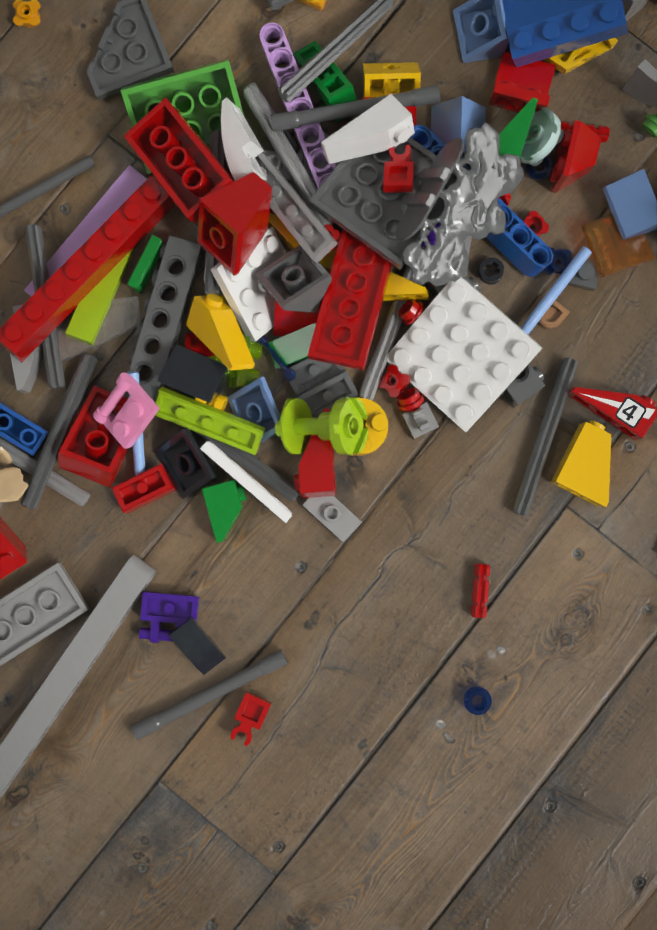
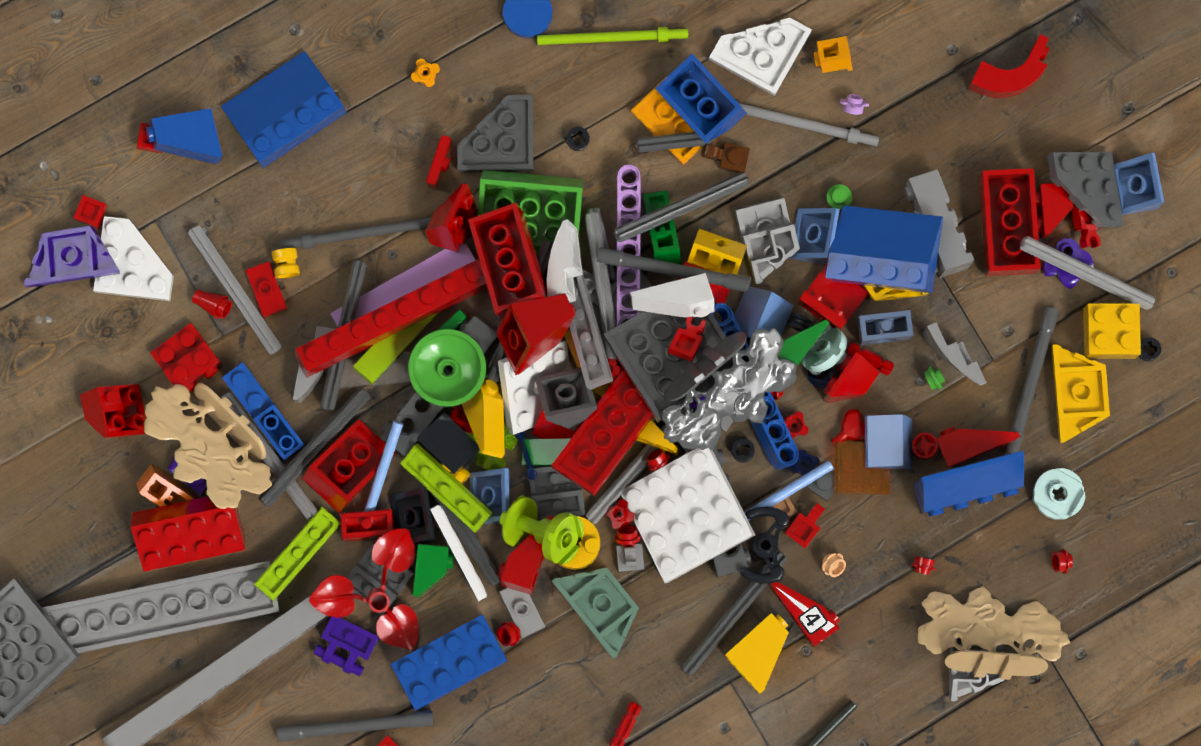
camera: 20 degrees right, 5 degrees down
(75, 96) = (440, 162): none -> red plate
(83, 545) = (297, 554): none -> lime tile
(108, 149) = (450, 220): none -> red slope
(133, 415) = (383, 460): bright pink plate -> none
(136, 570) = (396, 627): none -> red plant
(149, 281) = (441, 350): none -> bright green dish
(176, 538) = (368, 575): none -> dark grey slope
(197, 645) = (361, 678): black slope -> none
(206, 13) = (585, 135): none -> black bush
(279, 596) = (449, 662): none -> blue brick
(328, 543) = (508, 634): none -> red plate
(409, 479) = (601, 605): none -> sand green wing
(434, 46) = (768, 236): none -> light grey slope
(500, 119) = (800, 322): none -> black bush
(558, 348) = (776, 571): none -> black piece
(582, 324) = (804, 528): none -> red plate
(588, 91) = (885, 327): none -> sand blue brick
(591, 207) = (851, 427): none -> red rock
(626, 349) = (833, 564): none -> light nougat plate

